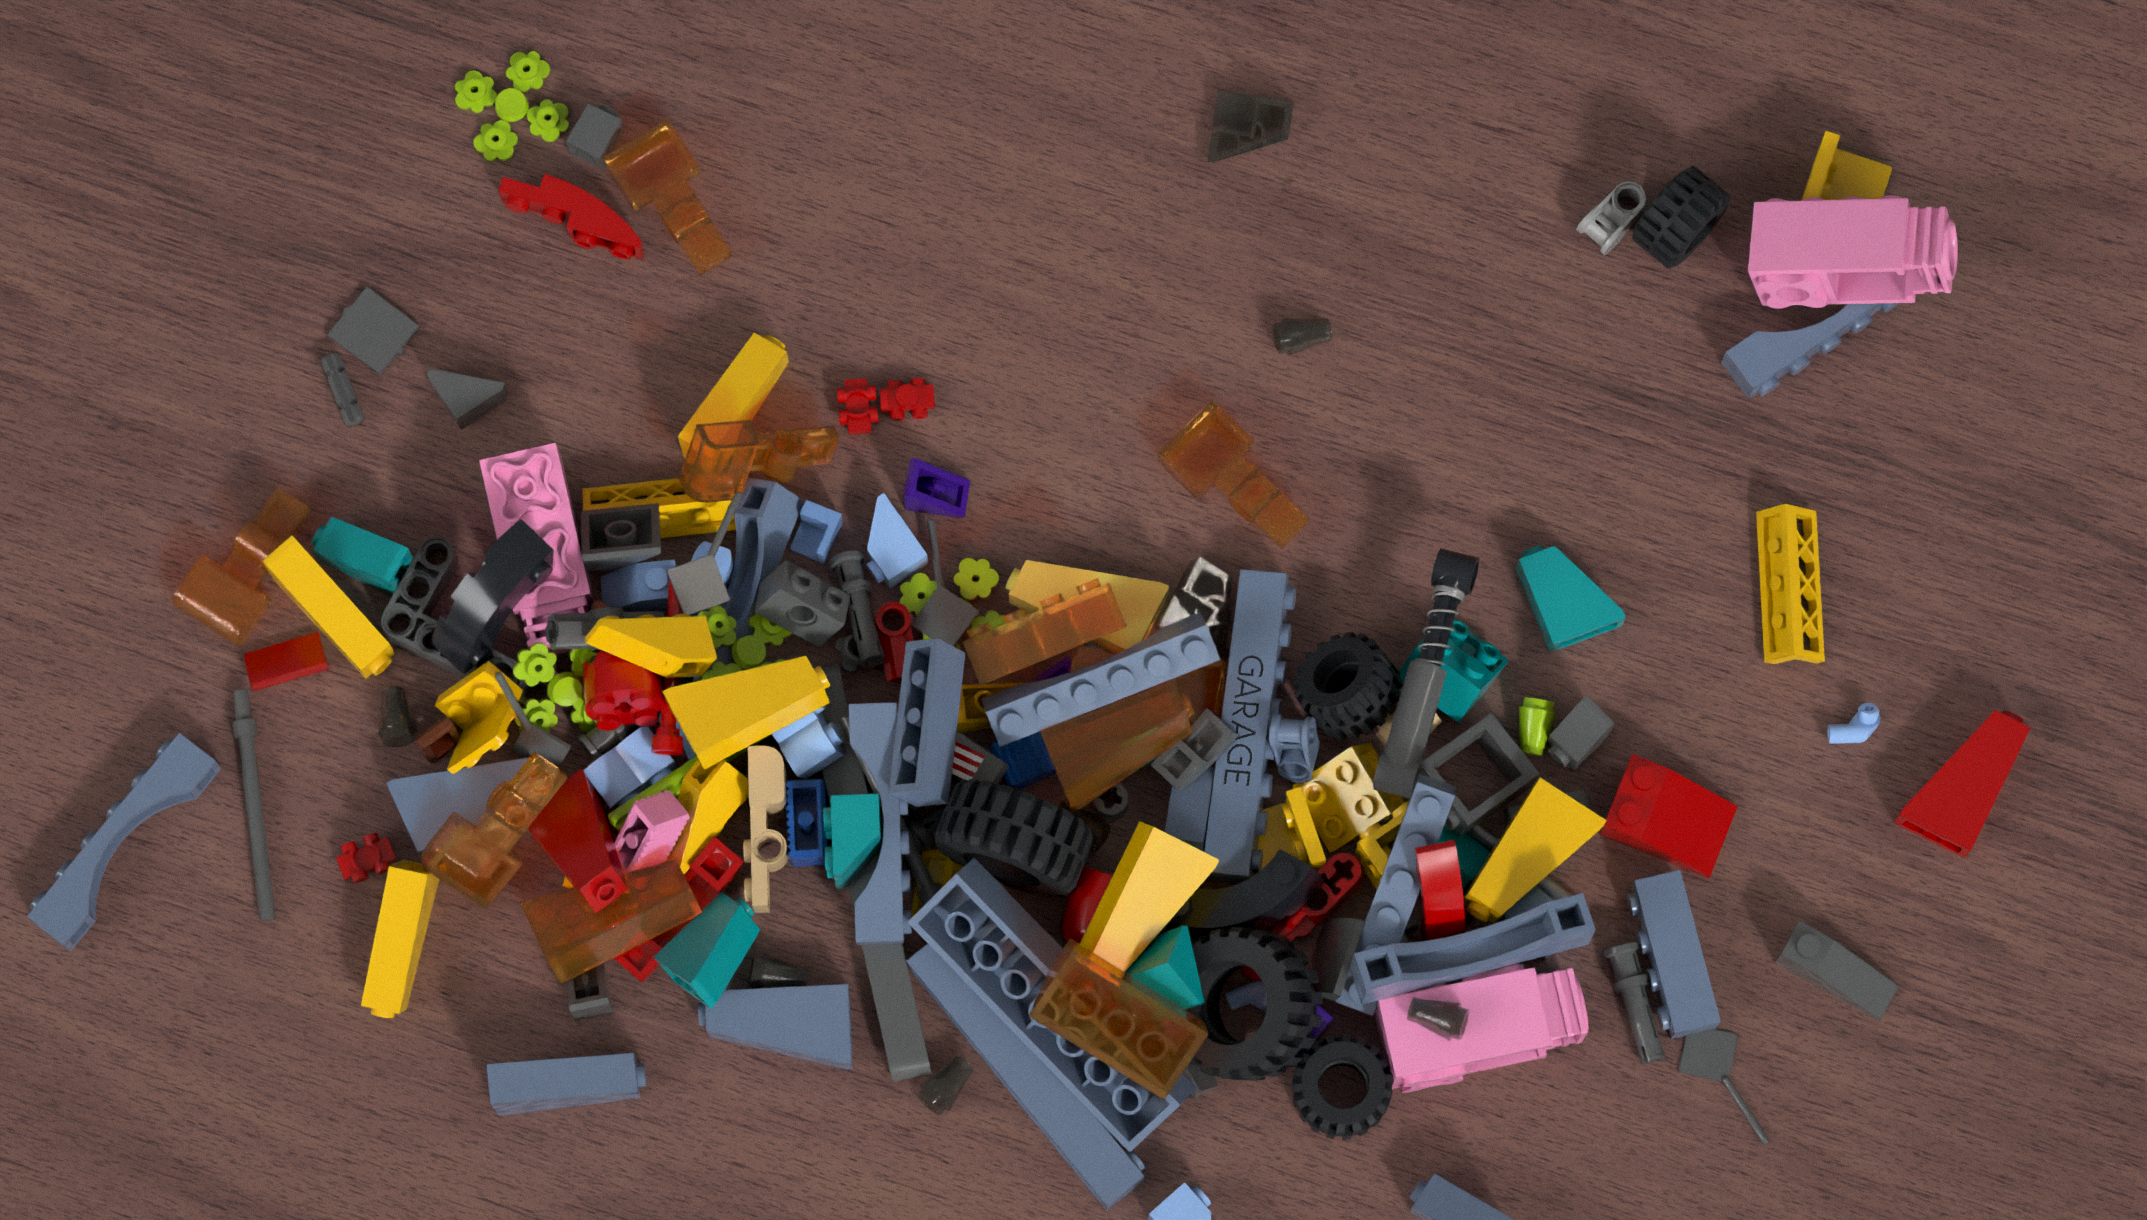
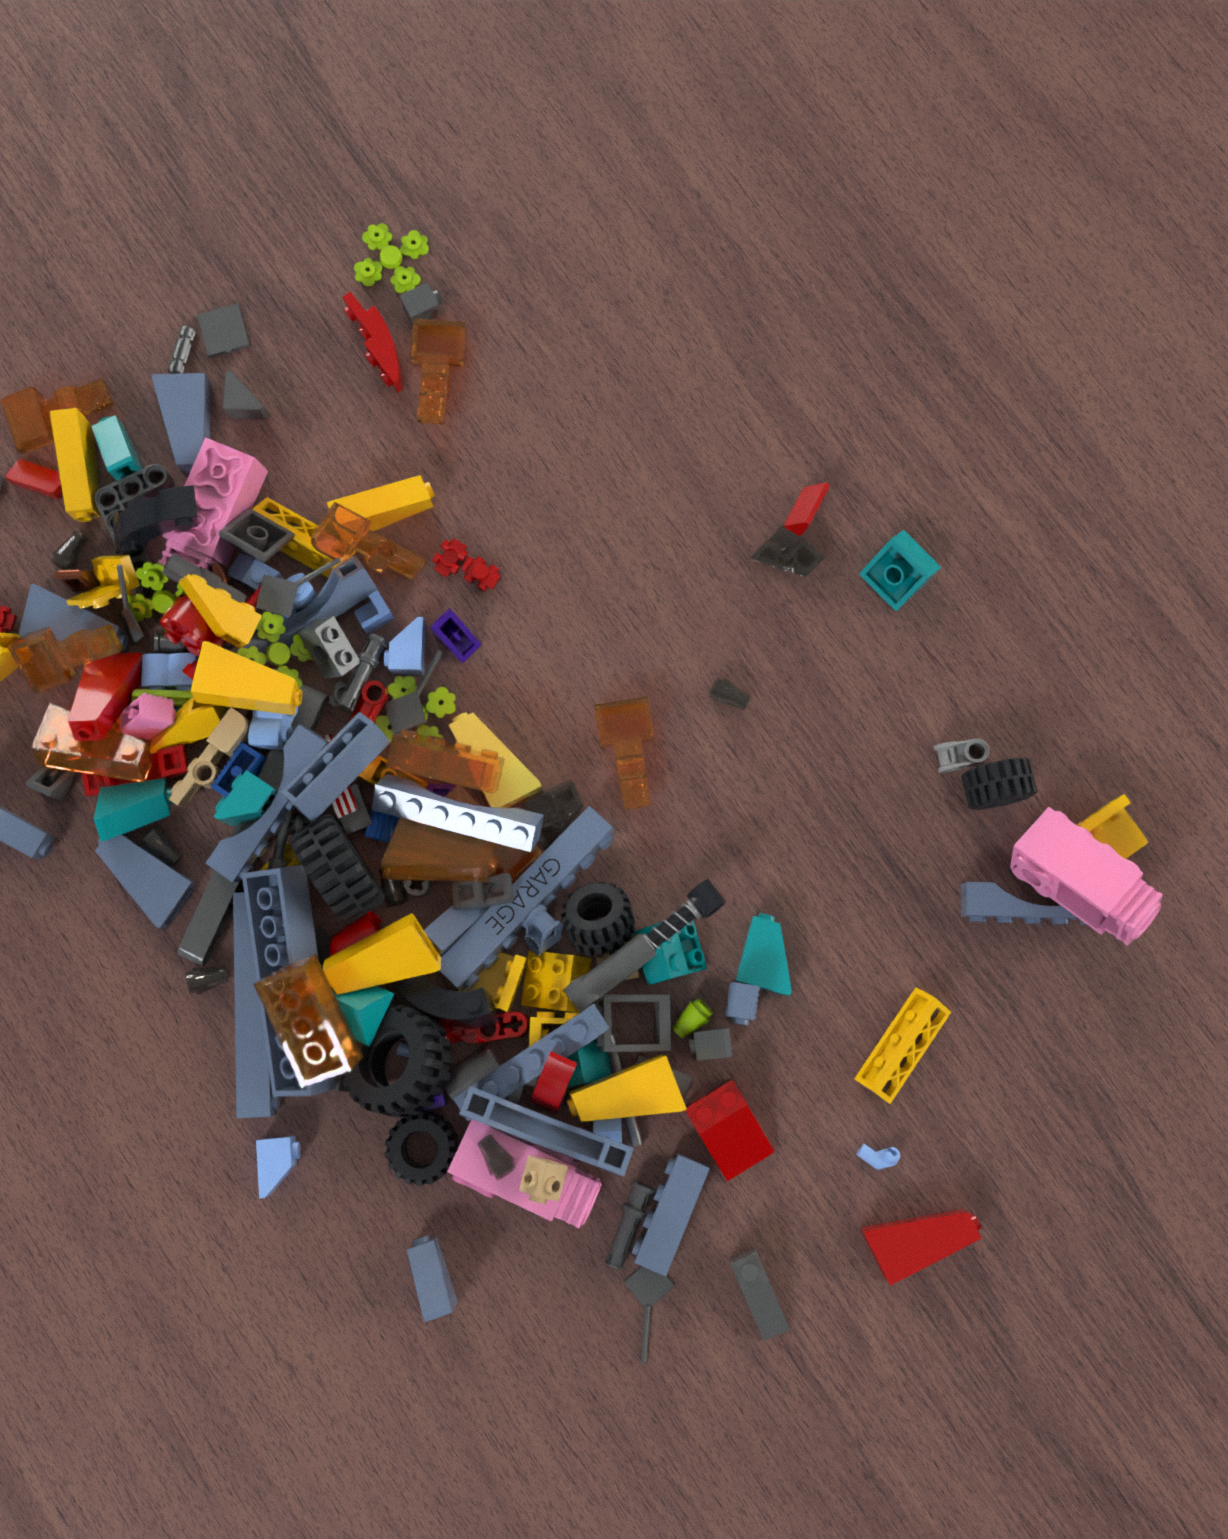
camera: 40 degrees right, 5 degrees up
(411, 459) = (186, 413): none -> sand blue slope
(1230, 59) = (806, 508): none -> red slope
(1389, 57) = (899, 570): none -> teal slope
(1509, 999) = (543, 1179): none -> tan brick
(1578, 663) = (742, 1003): none -> sand blue brick

